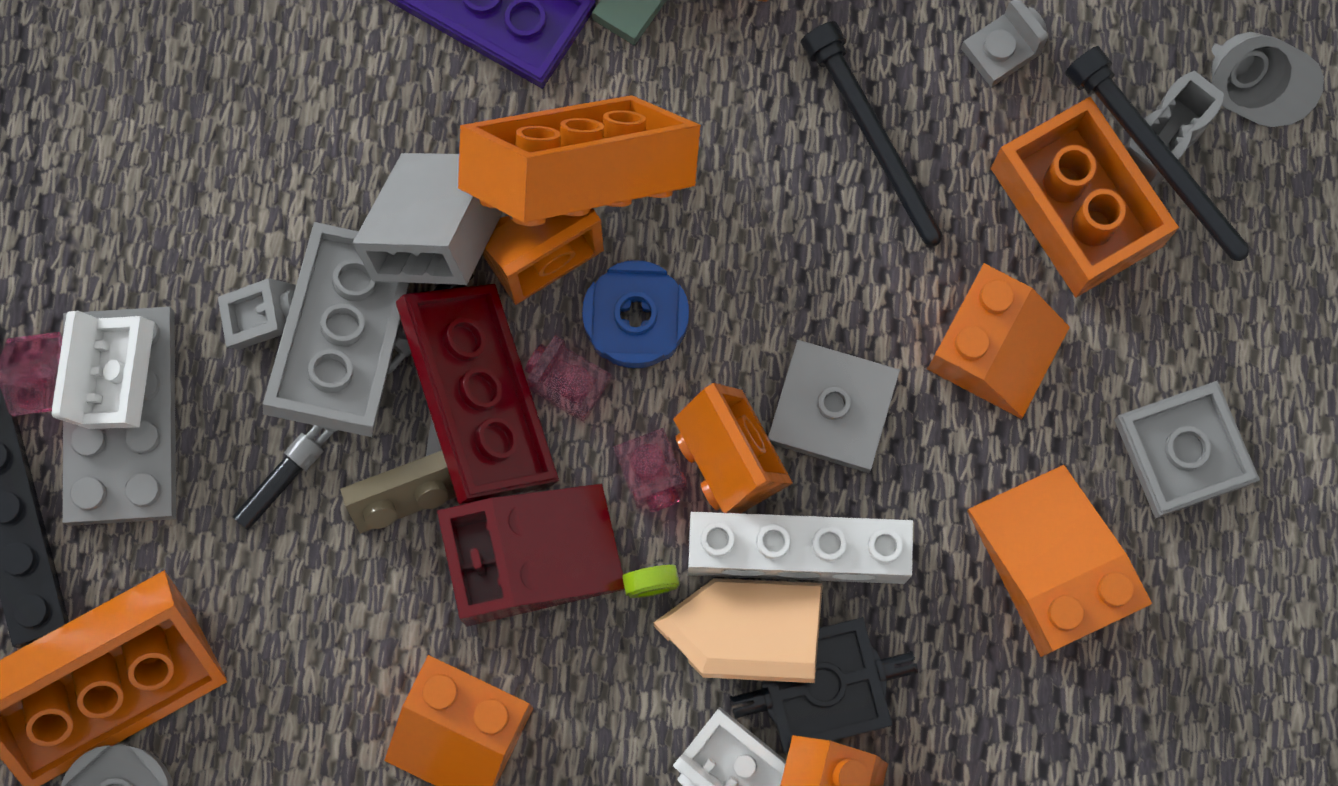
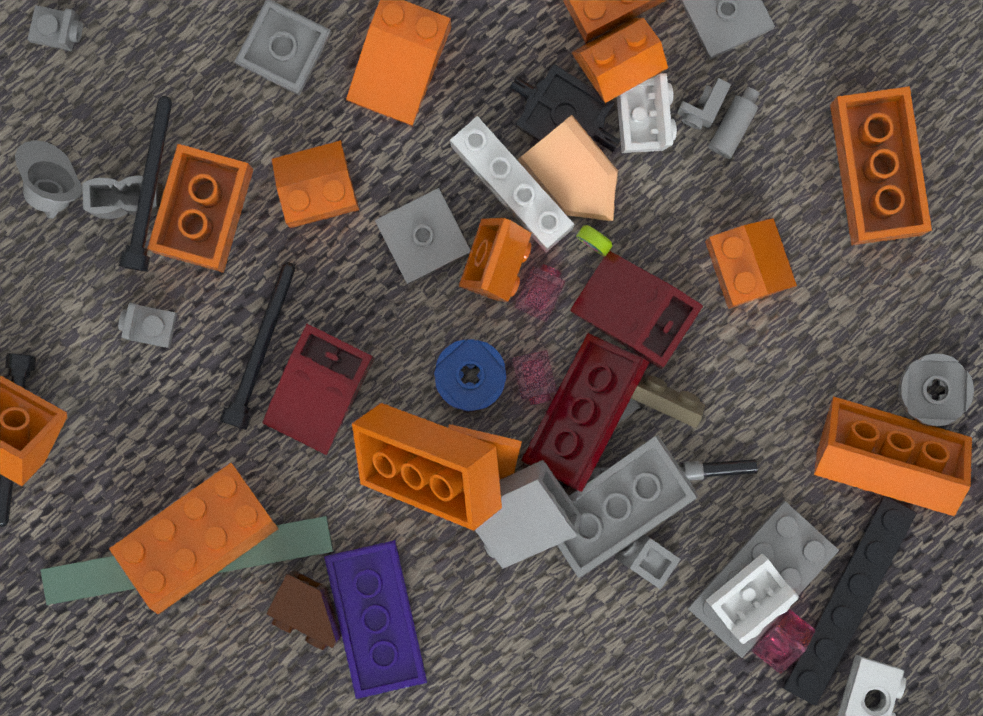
camera: 130 degrees left, 10 degrees up
(775, 149) = (317, 389): none -> dark red slope

